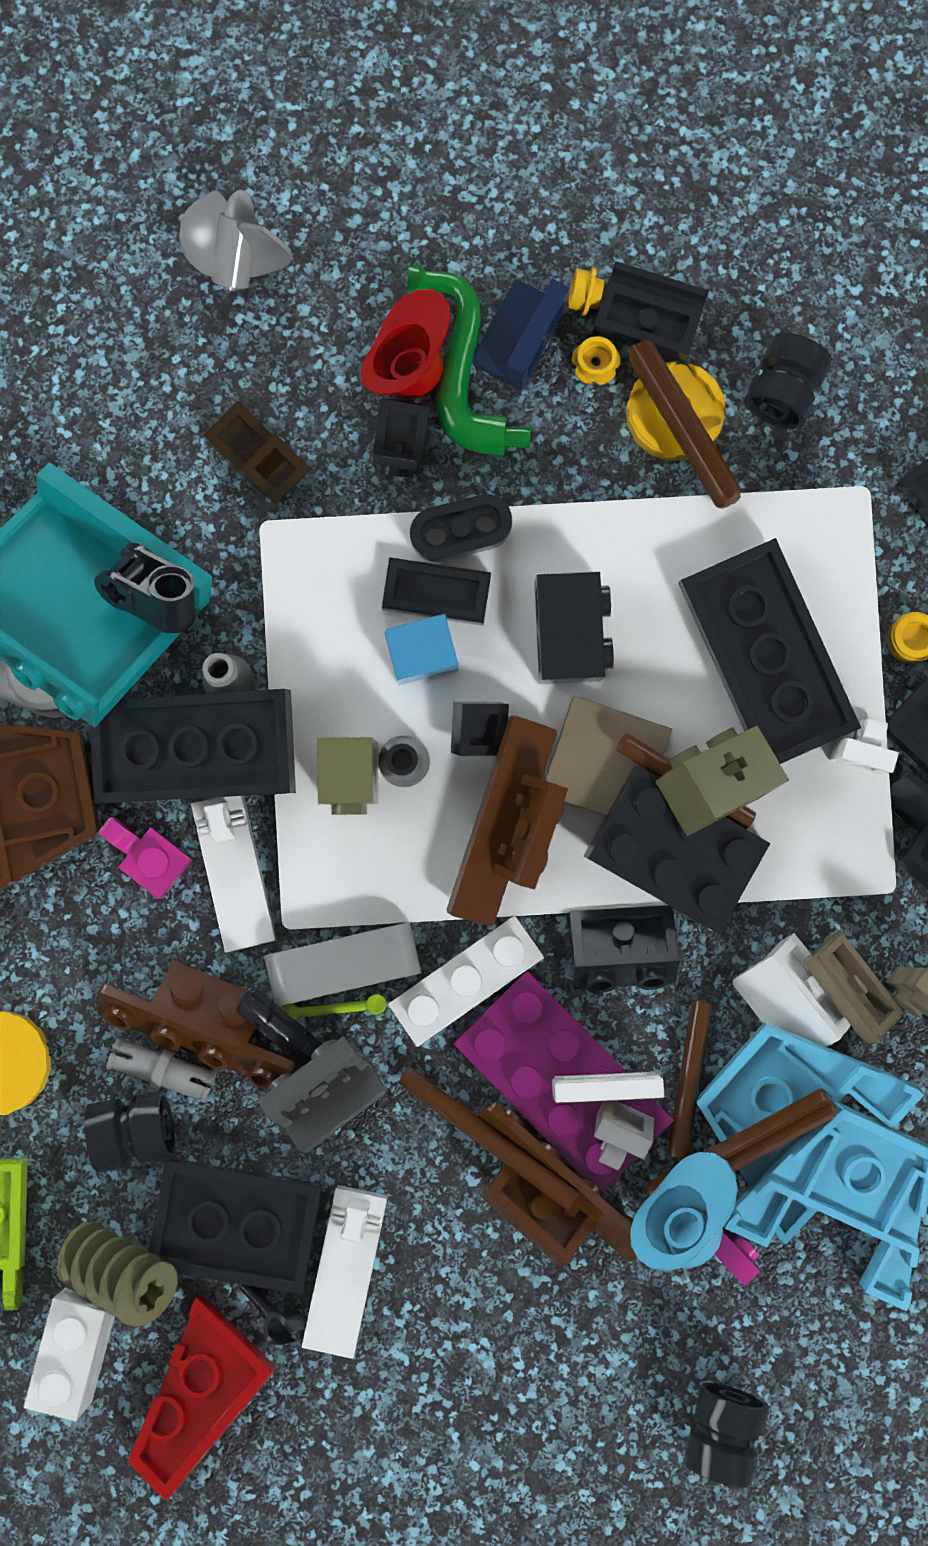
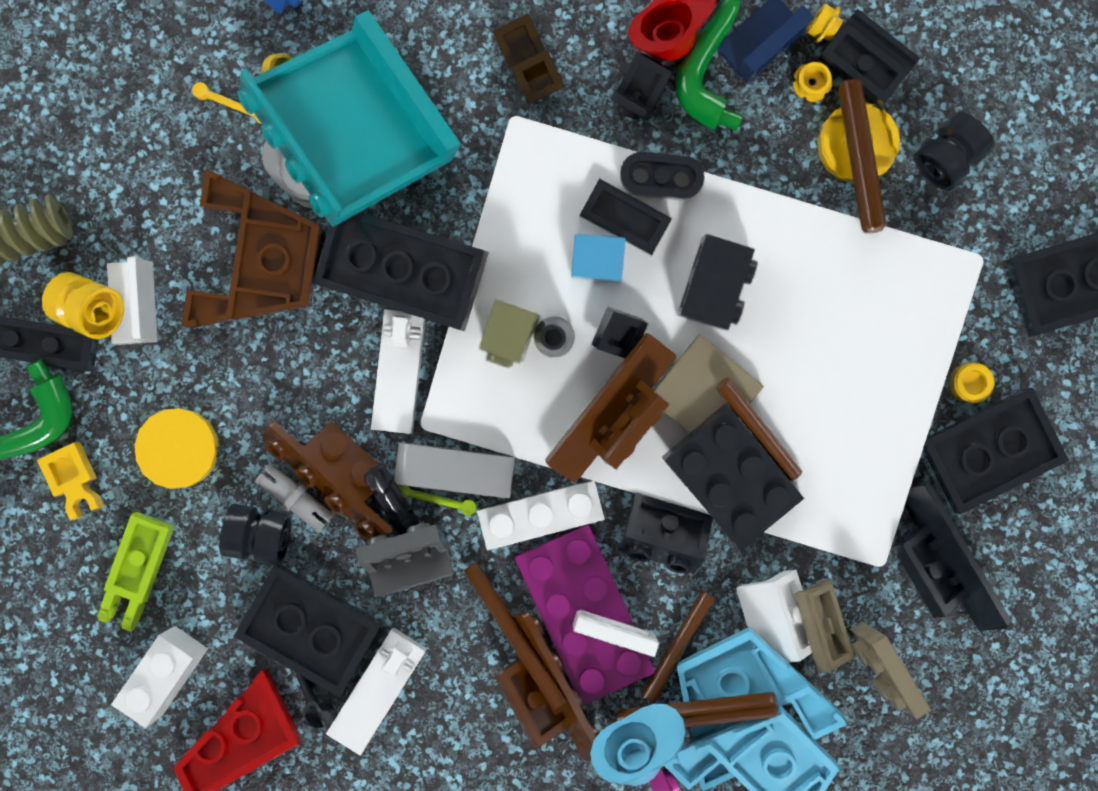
camera: 20 degrees right, 5 degrees up
(116, 1274) = (210, 634): olive piece -> none
(149, 589) = (410, 136): black piece -> none
(150, 860) = (340, 339): dark pink plate -> none
(237, 678) = (451, 229): light grey cone -> none
(622, 1132) = (615, 669): light grey tile -> none
(720, 779) = (786, 439): olive brick -> none
(769, 651) = (858, 357): black plate -> none
(865, 748) = (903, 454): white tile -> none

